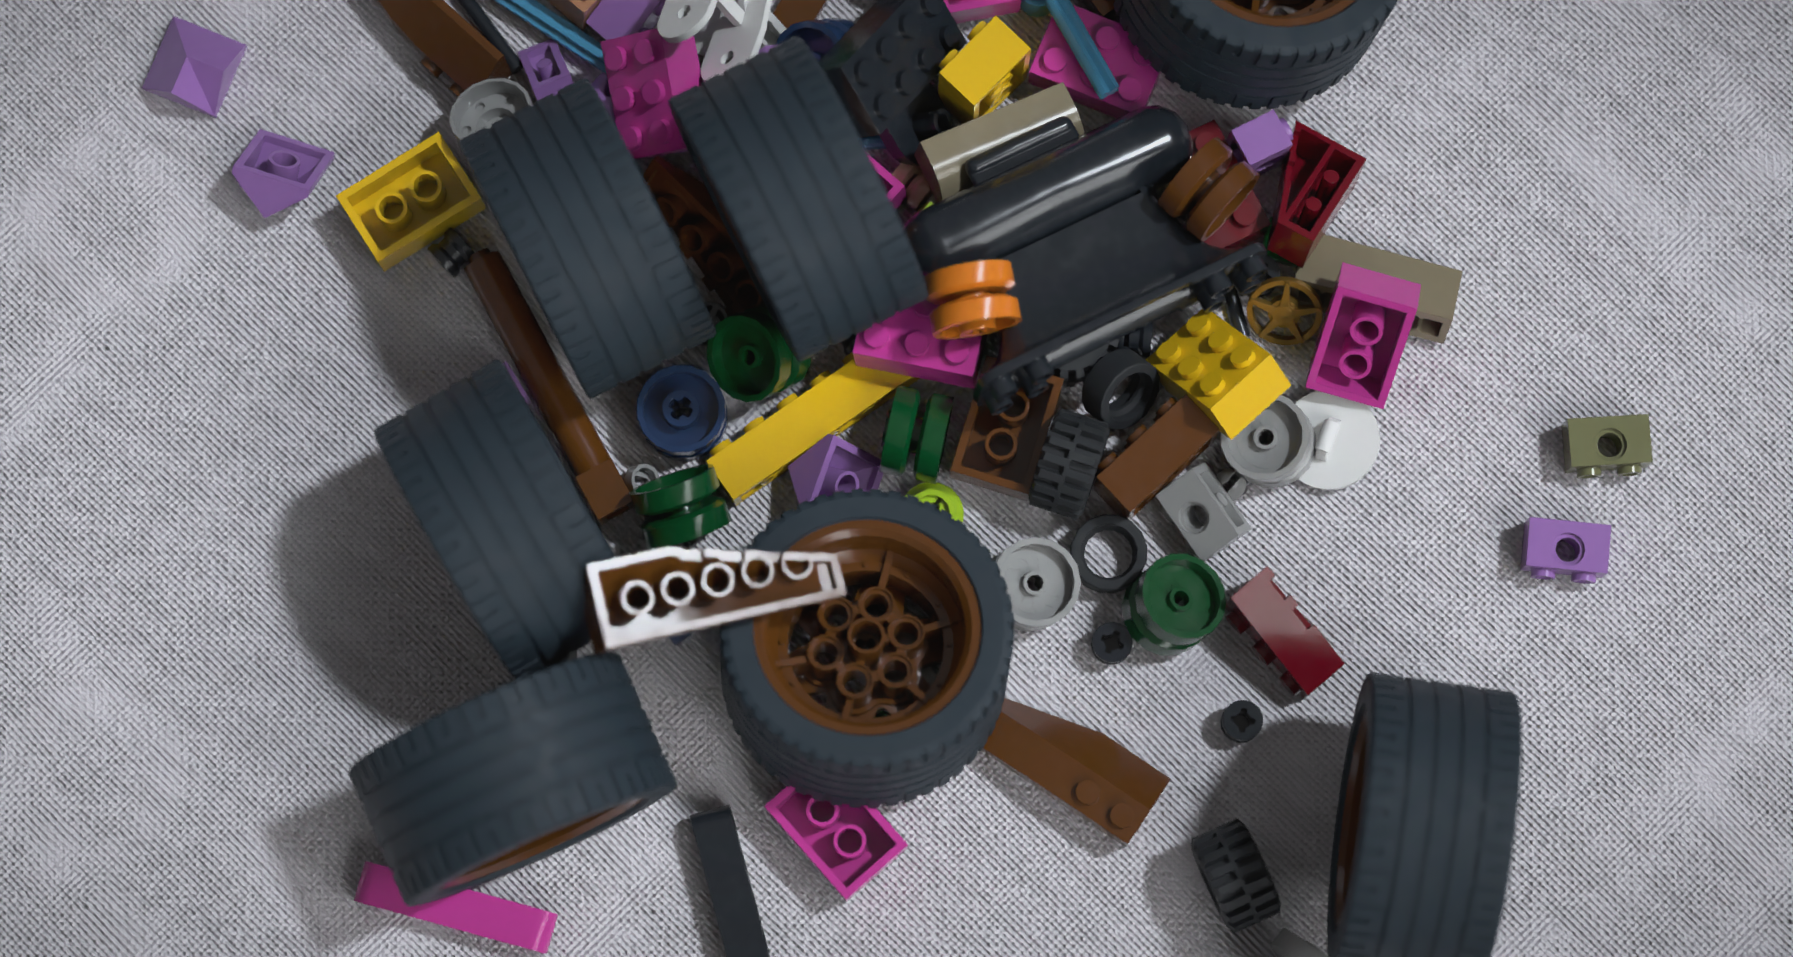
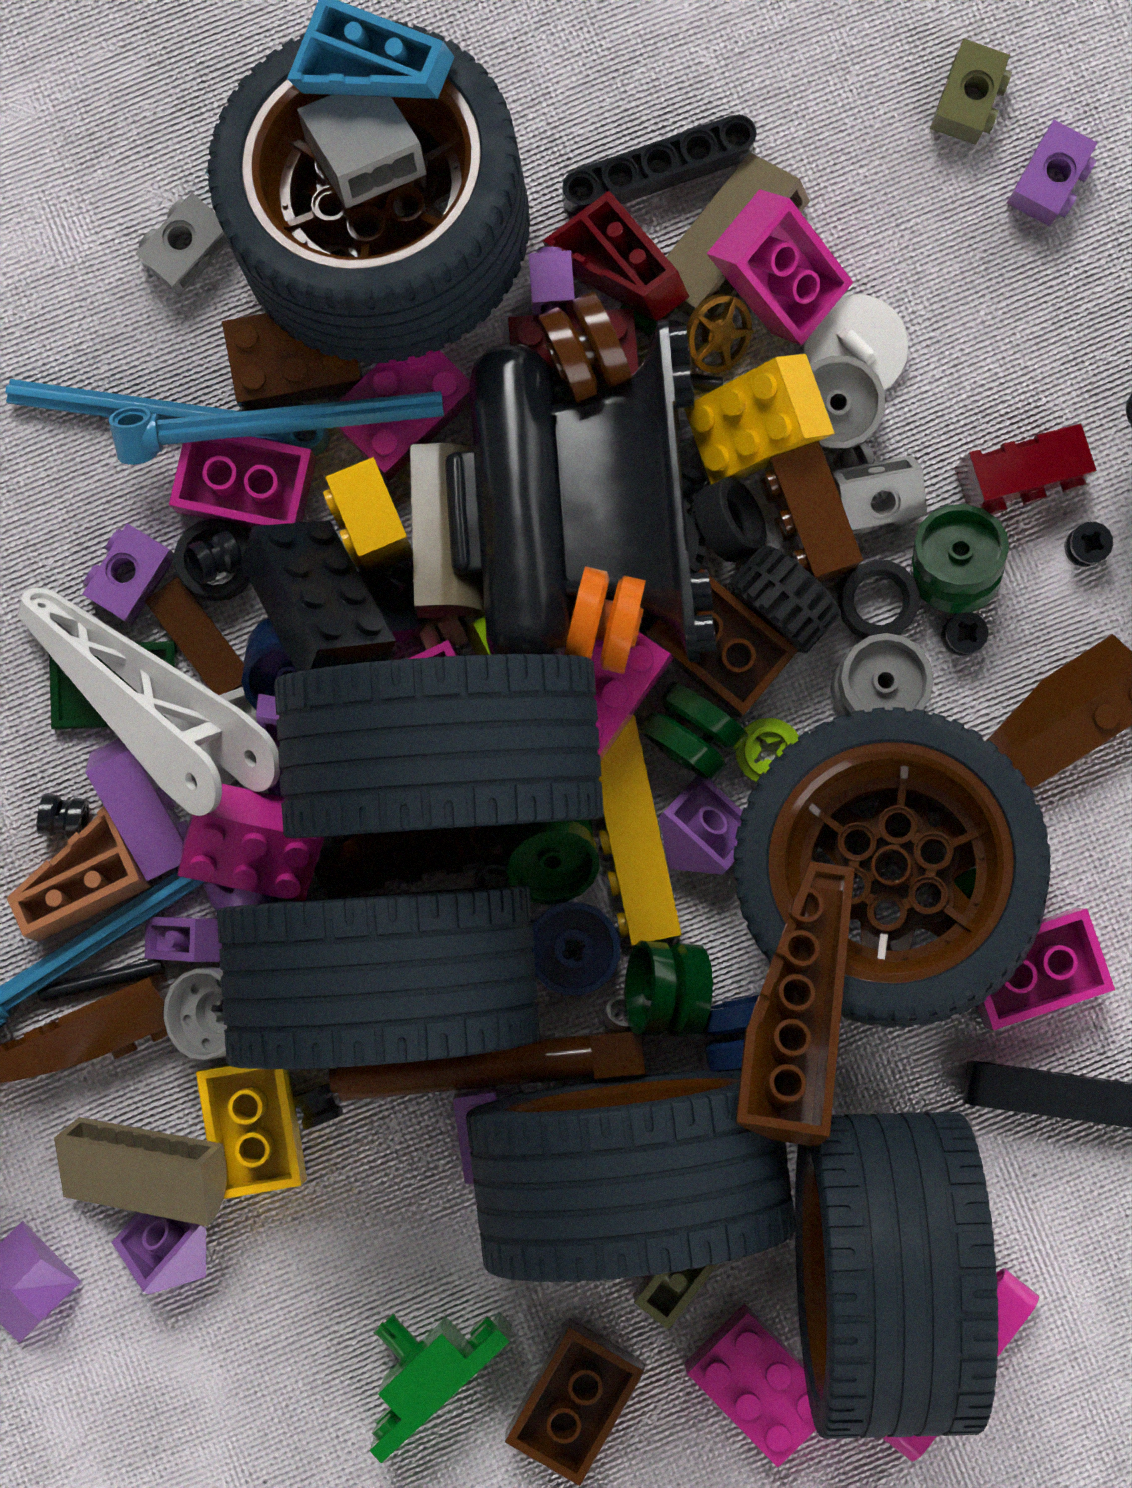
camera: 70 degrees left, 5 degrees up
(260, 441) = (429, 1373): none -> green brick
(287, 579) = (574, 1401): none -> reddish brown brick
(334, 122) = (142, 1170): none -> dark tan brick
(362, 718) = (755, 1383): none -> dark pink brick
(430, 622) = (669, 1293): none -> olive brick
(1417, 216) = (670, 150): none -> black beam

